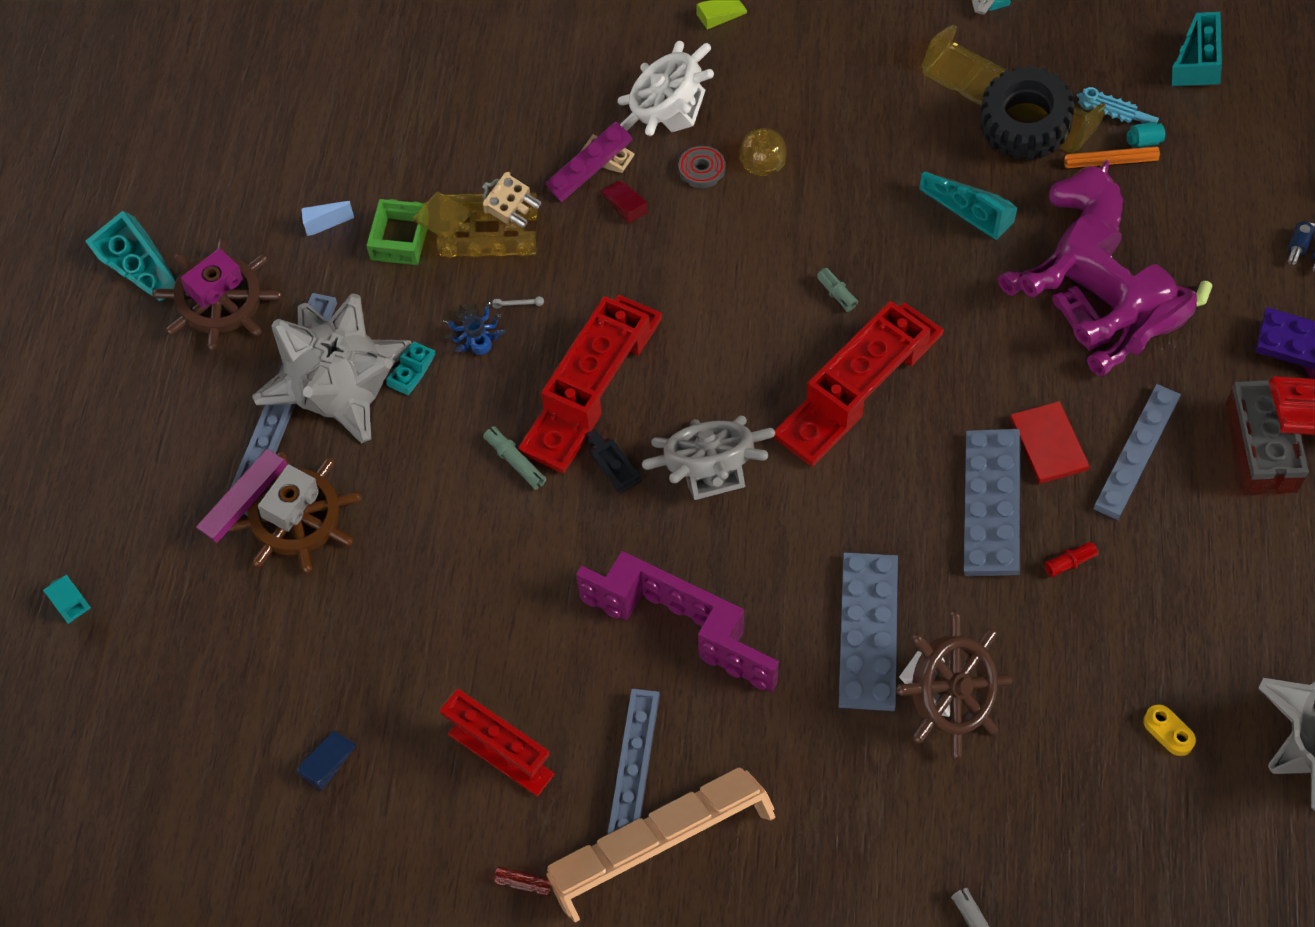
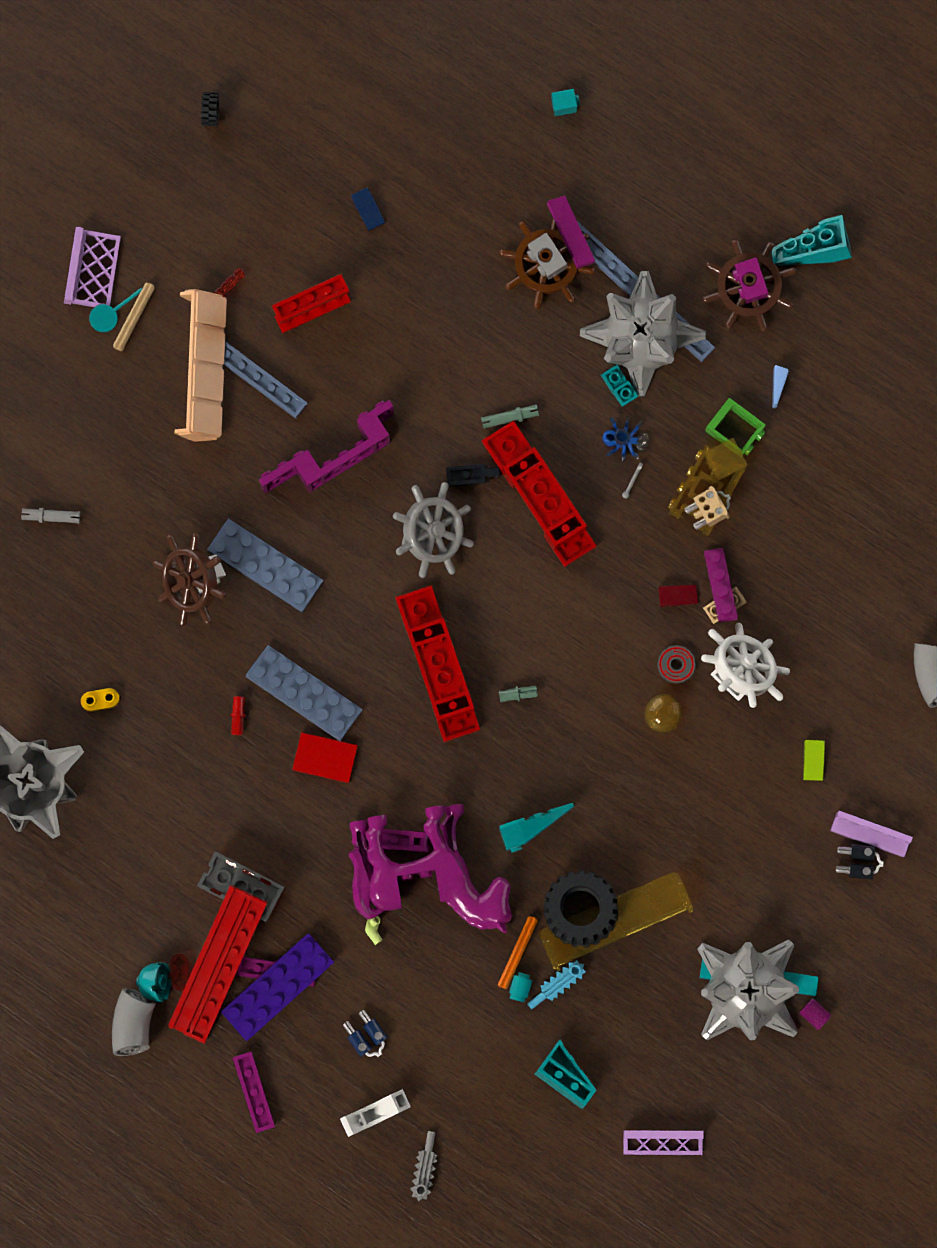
camera: 115 degrees right, 20 degrees up
(1137, 452) = (286, 809): sand blue plate -> none

